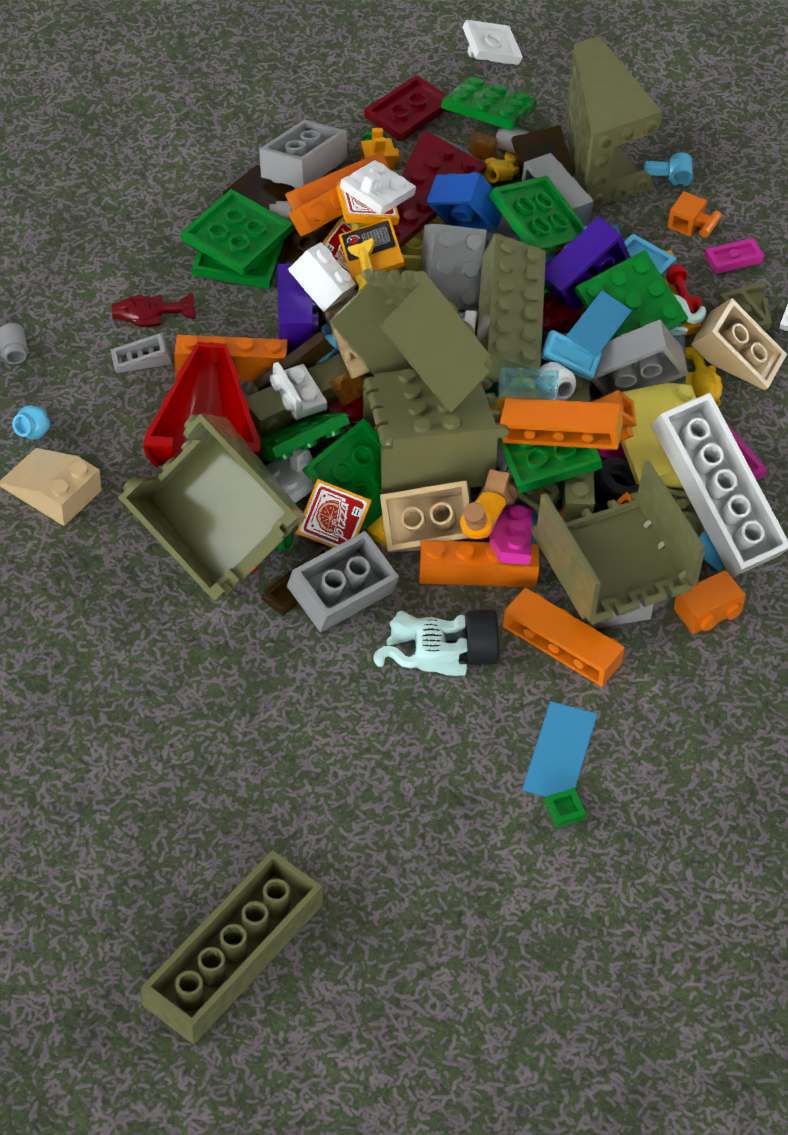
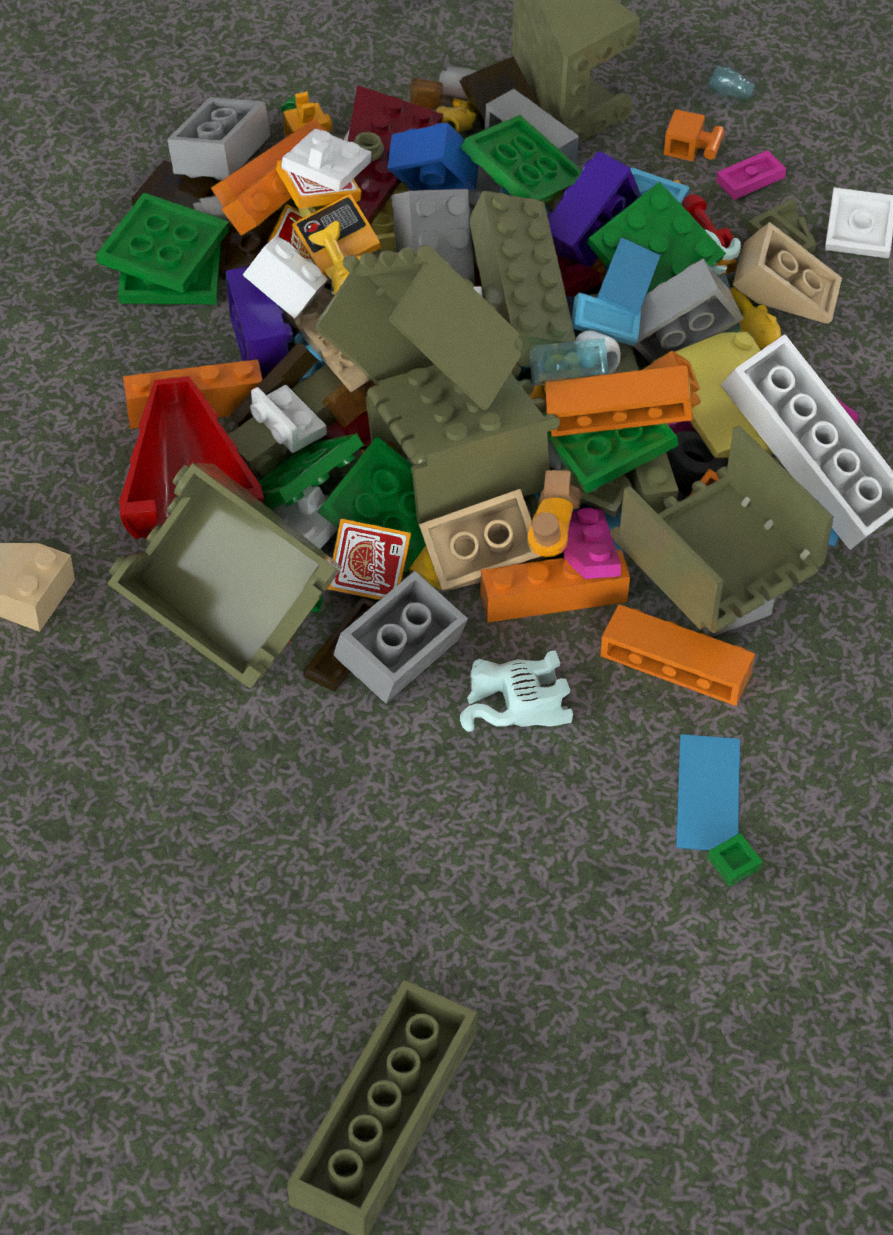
camera: 10 degrees left, 0 degrees up
(146, 310) = (76, 354): dark red animal -> none
(148, 344) = (96, 412): light grey slope -> none
(406, 108) = (326, 65): dark red plate -> none
(418, 179) = (370, 142): none -> olive plate
(482, 636) = (584, 670): black tyre -> none
(489, 103) = (421, 44): green plate -> none
(677, 169) = (657, 86): medium azure axle -> none
(710, 602) = (838, 583): orange brick -> none
(737, 175) = (731, 83): none -> clear light blue cone

